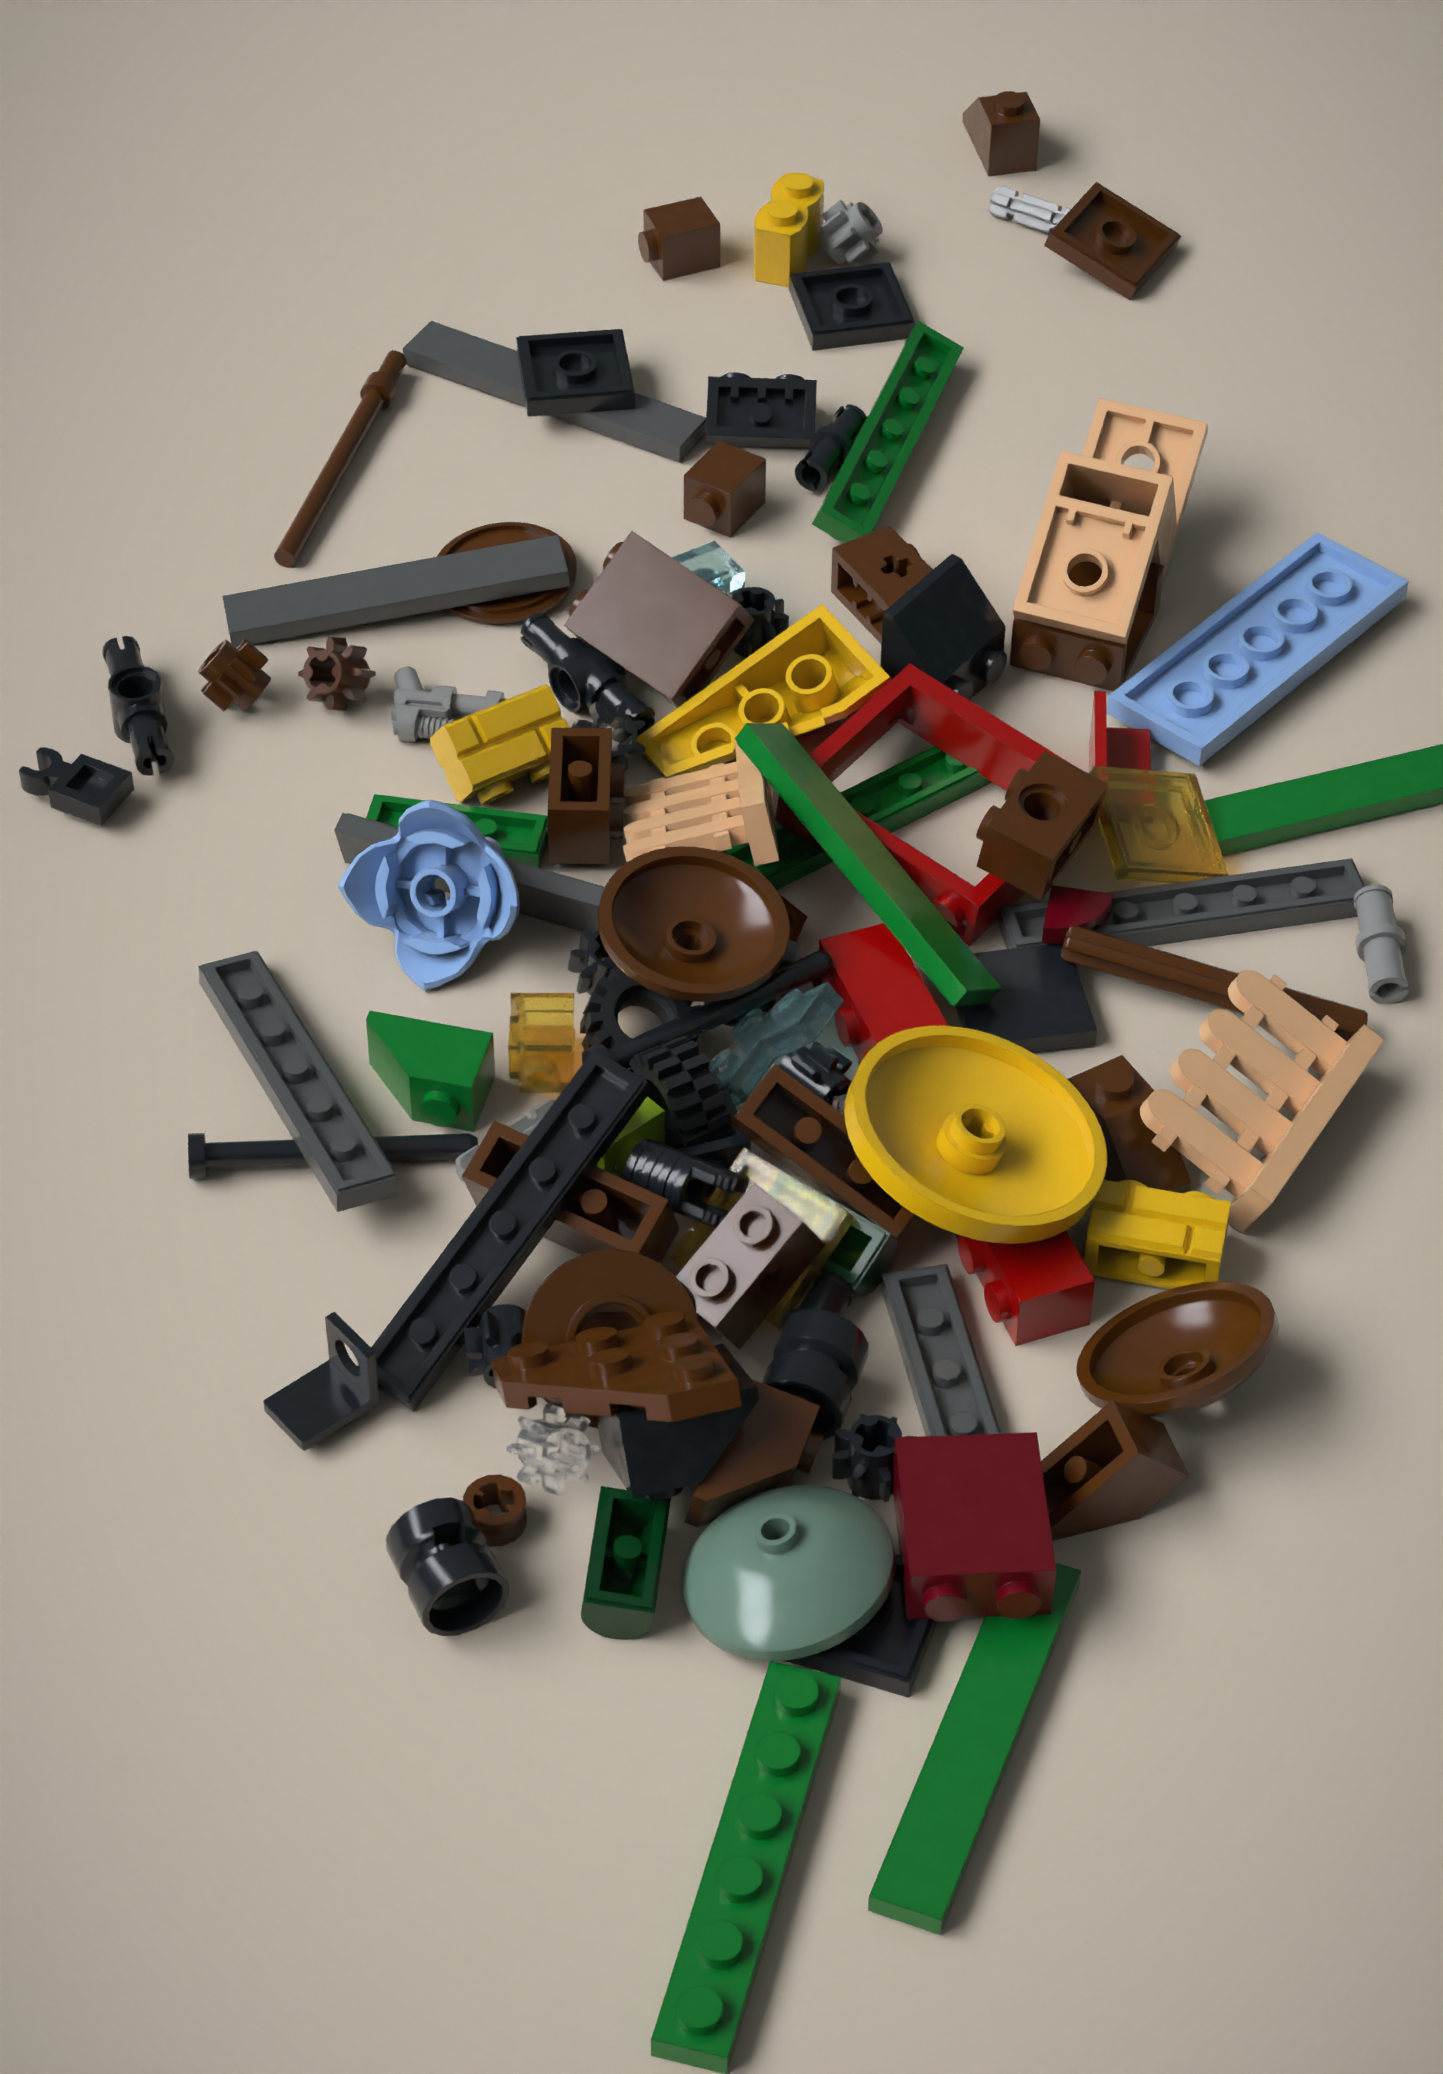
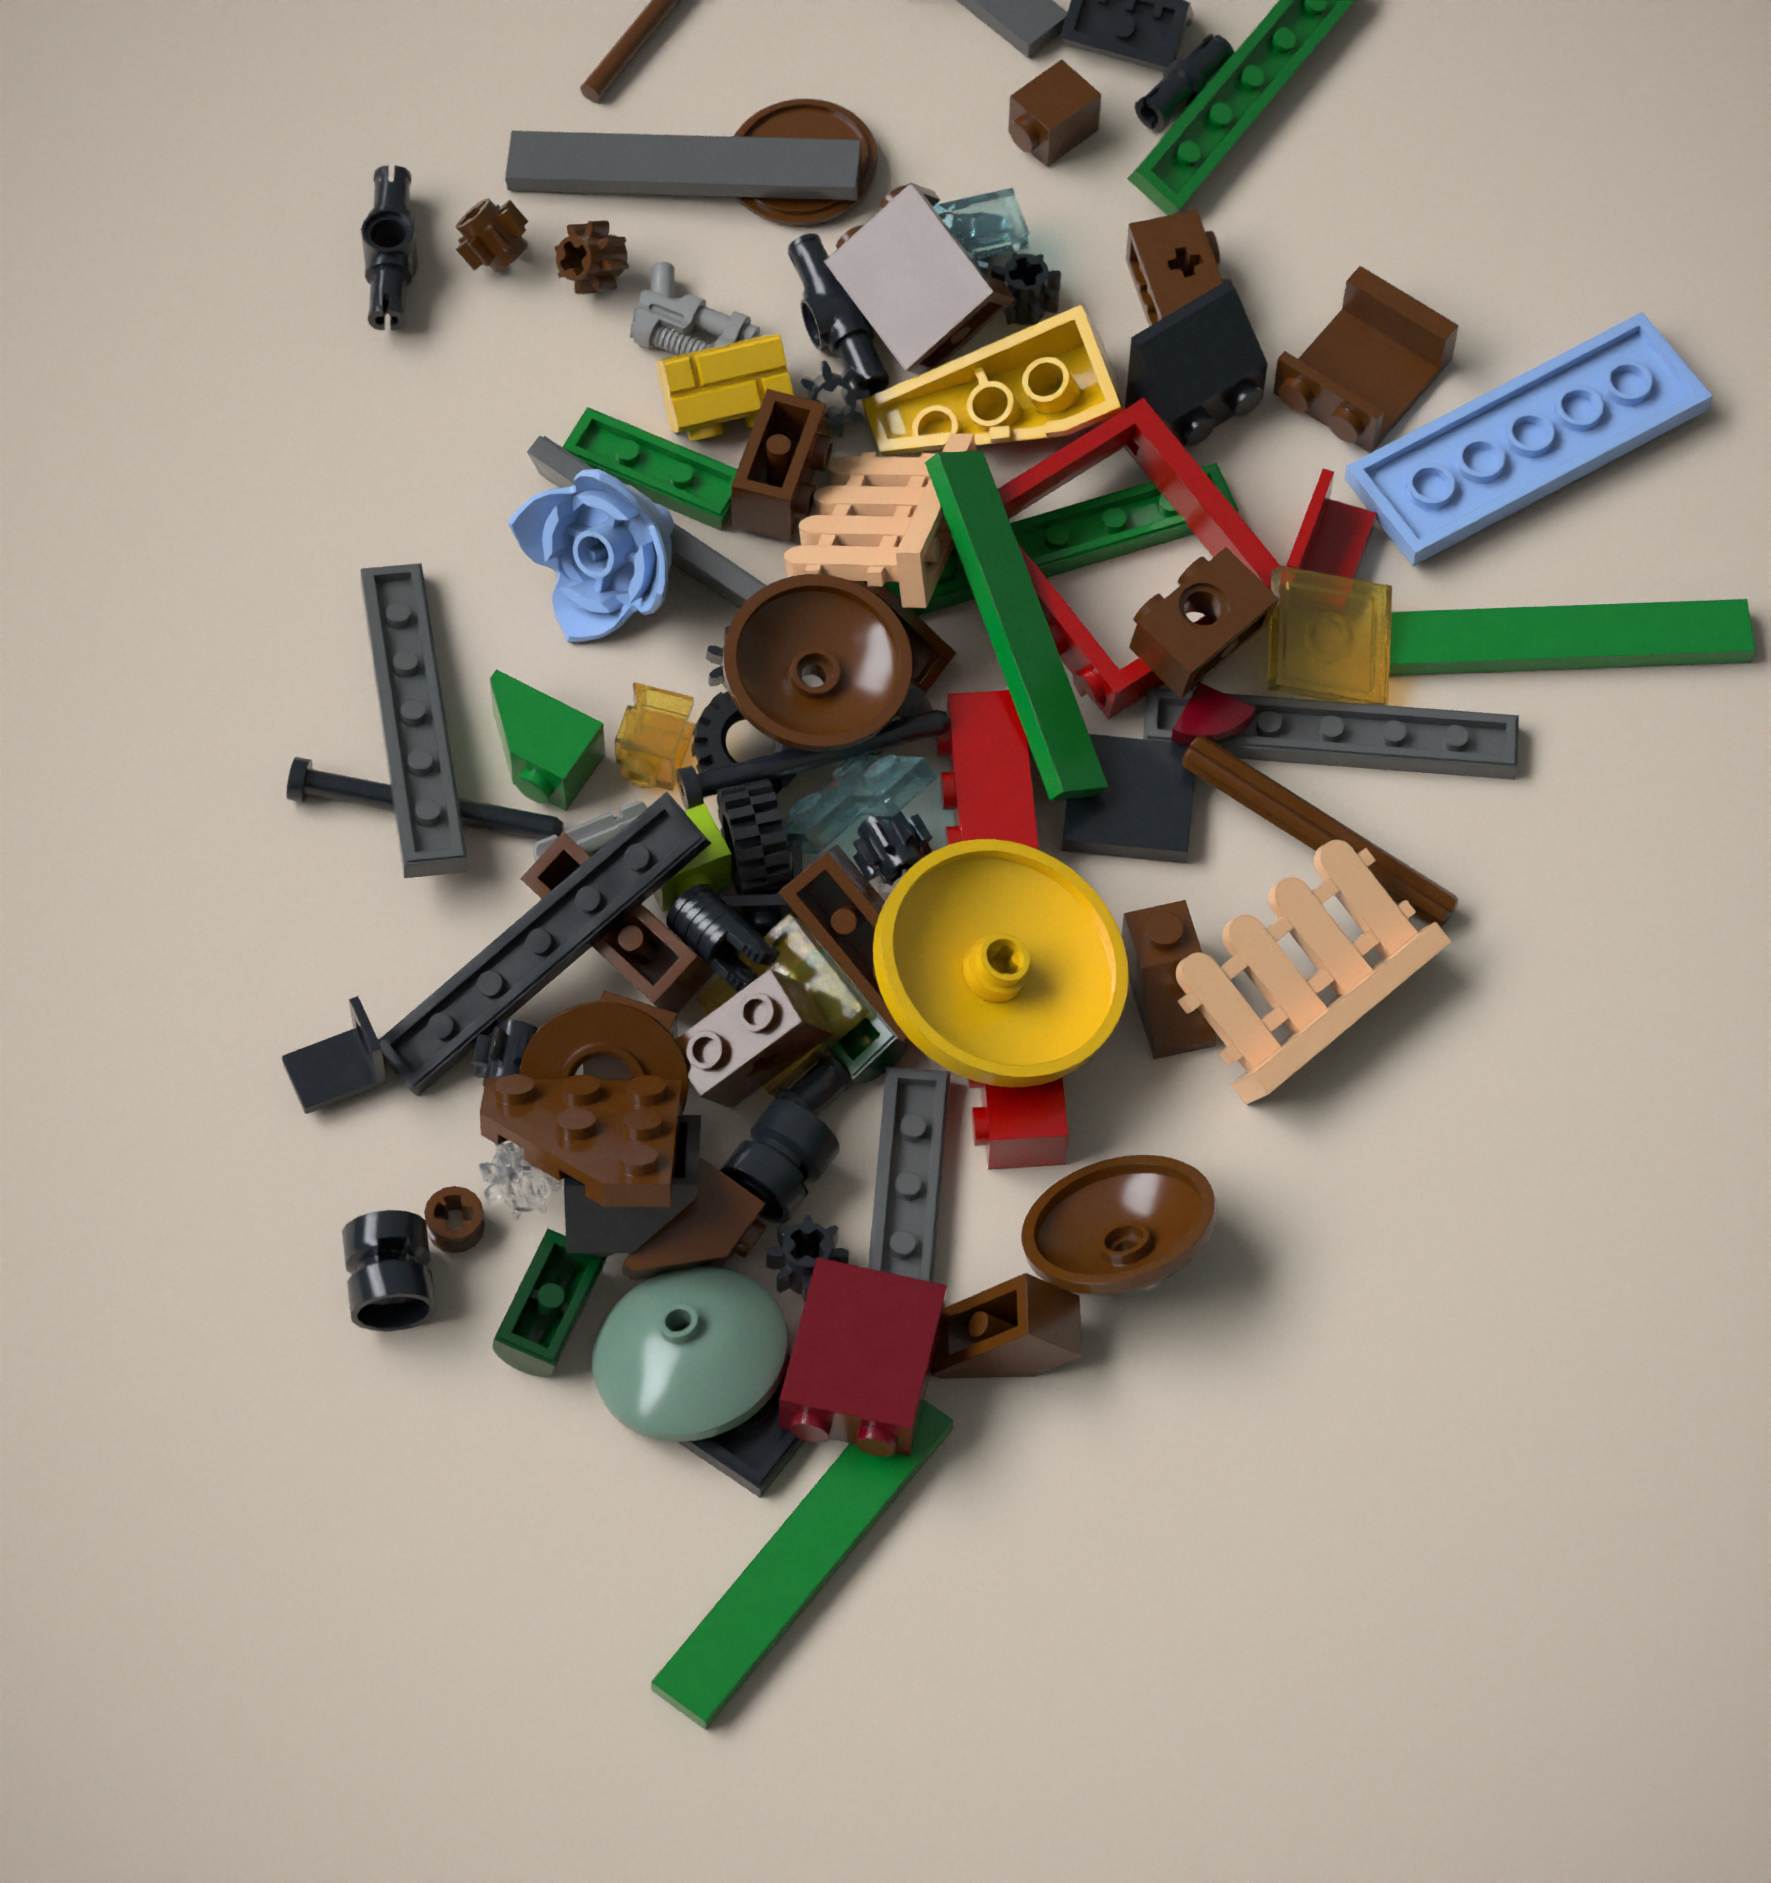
camera: 15 degrees right, 15 degrees up
(82, 789) = (310, 333): black plate -> none
(746, 1869) = (561, 1620): green plate -> none
(1110, 518) = (1416, 264): light nougat bracket -> none
(1155, 1235) = (1154, 1095): yellow brick -> none
(1381, 944) = (1505, 822): light grey pin -> none

